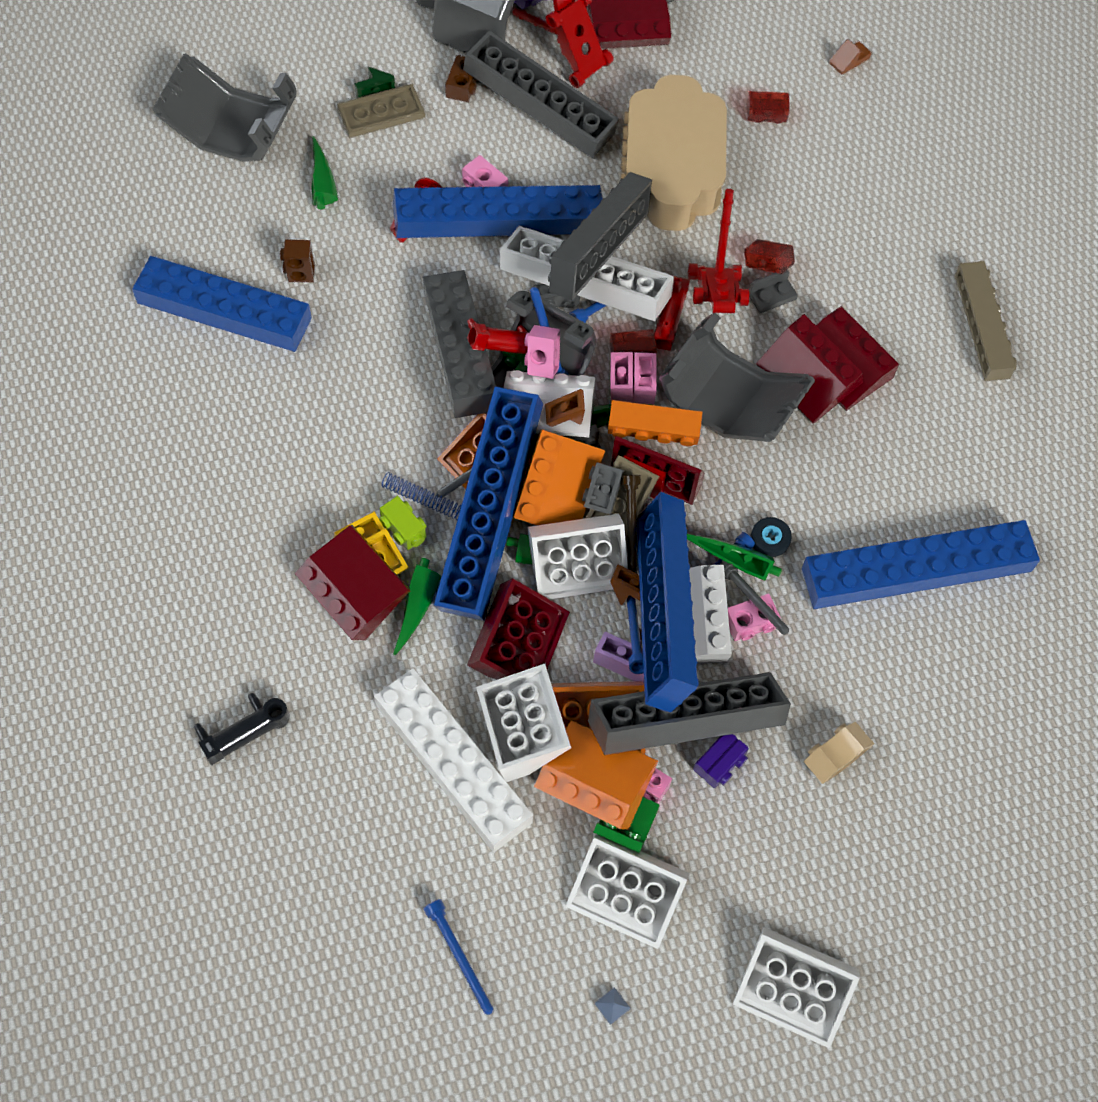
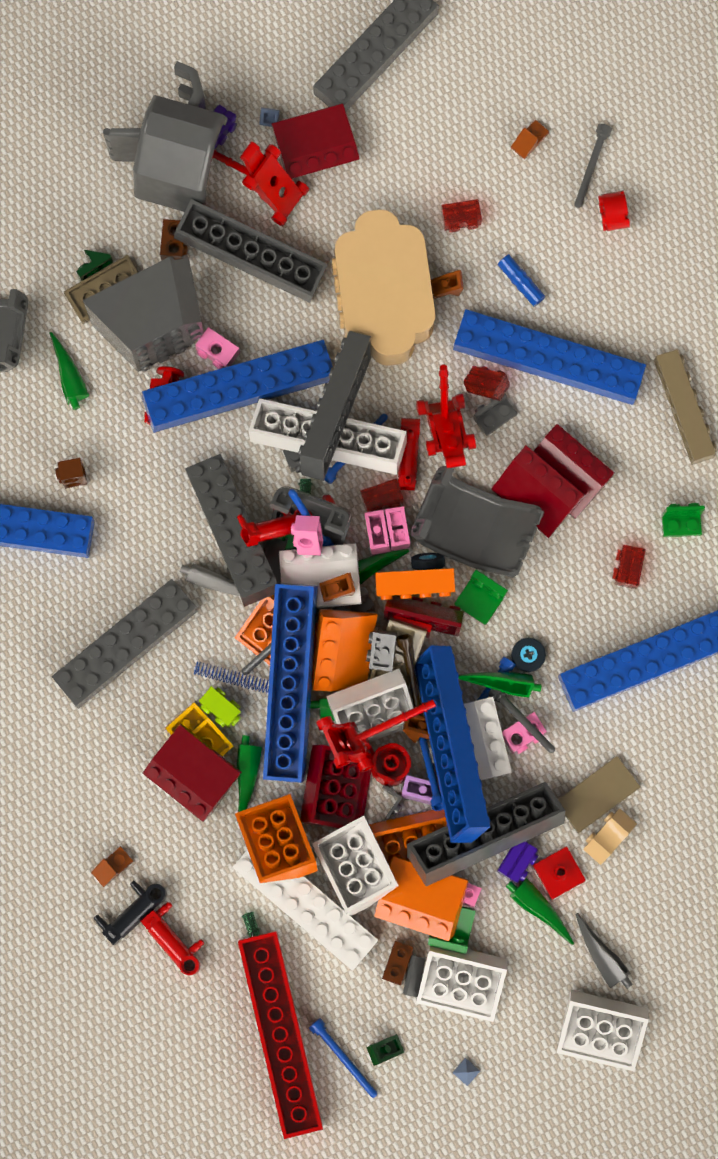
camera: 10 degrees left, 15 degrees up
(231, 675) = (112, 866): none -> dark orange slope
(279, 772) = (170, 941): none -> red piece
(310, 439) = (125, 643): none -> dark grey brick
(381, 769) = (251, 924): none -> clear green pin
(385, 912) = (280, 1035): none -> red brick
(417, 122) = (149, 313): none -> dark grey windscreen
(425, 395) = (209, 579): none -> light grey piece
(434, 674) = (276, 840): none -> orange slope
(514, 955) = (385, 1049): none -> dark green slope
(548, 571) = (352, 746): none -> red piece
(551, 850) = (397, 963): none -> reddish brown brick
(568, 872) = (414, 976): none -> dark grey slope
(586, 669) = (397, 806): none -> dark grey bracket
(588, 619) = (383, 756): none -> red brick
(728, 464) = (481, 597): none -> green bracket
(732, 813) = (532, 901): none -> green piece
(744, 161) = (447, 284): none -> dark orange slope
(769, 785) = (559, 873): none -> red tile
(813, 903) = (607, 962): none -> dark grey piece
(822, 175) = (521, 280): none -> blue axle
(831, 704) = (598, 794): none -> dark tan tile
(843, 247) = (549, 357): none -> blue brick
(902, 465) = (629, 566): none -> clear red brick
(927, 63) = (603, 131): none -> dark grey piece
(931, 127) = (614, 211): none -> red brick
(969, 427) = (682, 520): none -> green bracket

